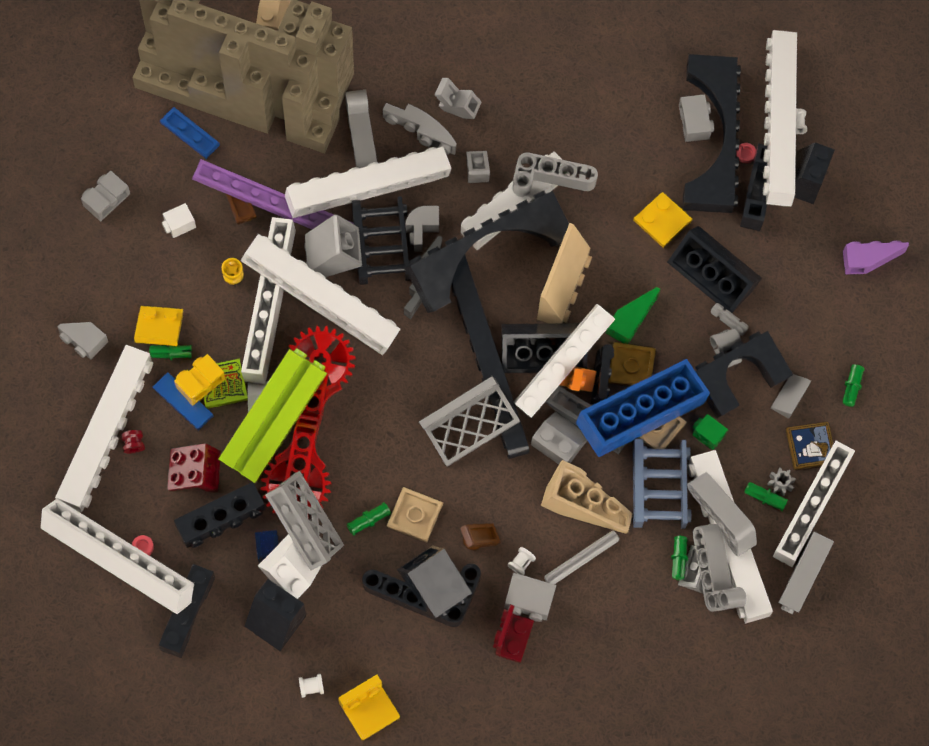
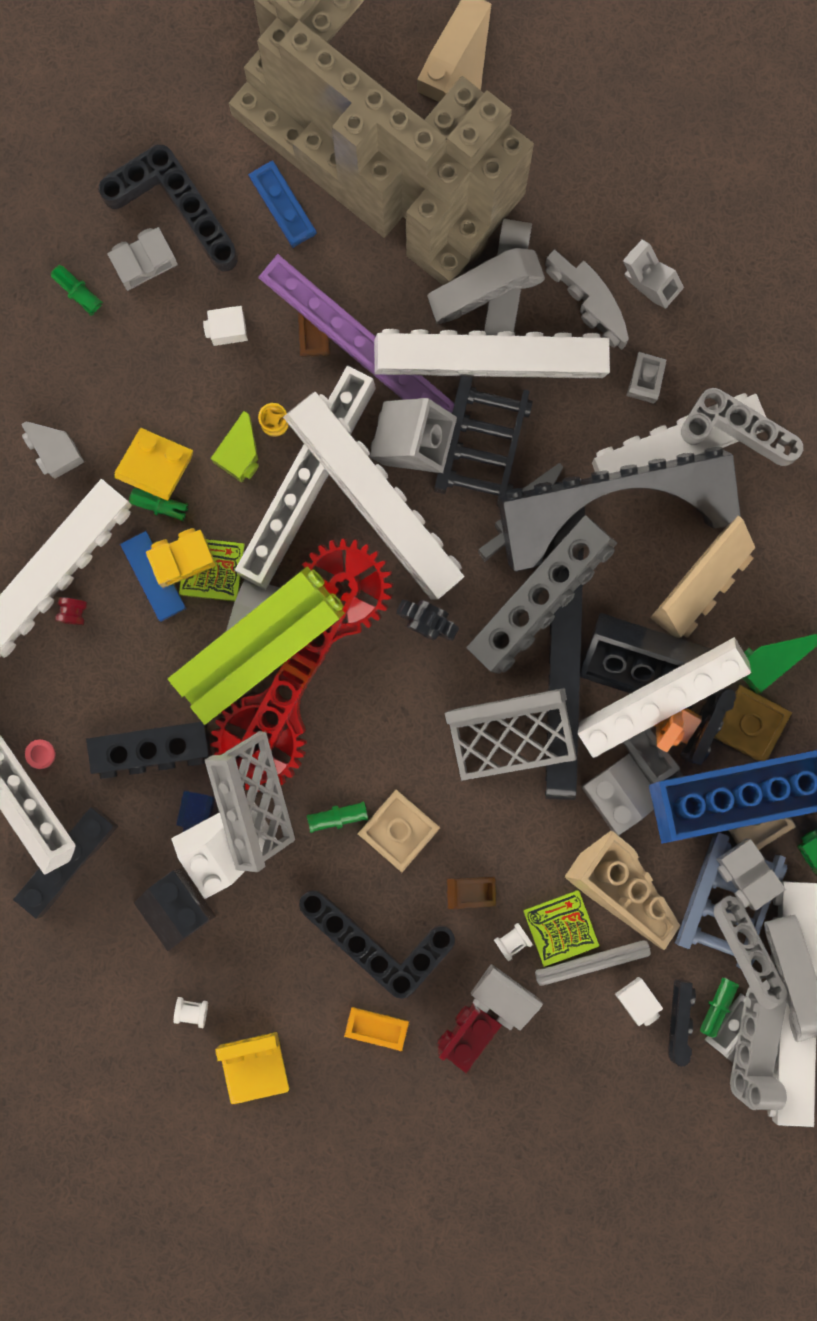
camera: 25 degrees right, 15 degrees up
(65, 230) = (76, 290): none -> green axle
(118, 150) = (181, 198): none -> black beam
(194, 468) = (137, 674): dark red bracket -> none
(215, 299) = (238, 450): none -> lime slope
(346, 137) = (489, 280): none -> light grey beam
(385, 364) = (427, 620): none -> black gear
(419, 221) = (546, 431): light grey brick -> none
(435, 581) = (388, 940): slope -> none
(447, 653) = (376, 1028): none -> light orange tile
(455, 311) = (506, 621): none -> dark grey brick
(551, 542) = (561, 928): none -> lime tile
(623, 571) = (639, 1002): none -> white brick
(657, 576) = (681, 1024): none -> black hinge
(665, 456) = (750, 875): none -> light grey brick
(702, 522) = (745, 953): none -> light grey beam

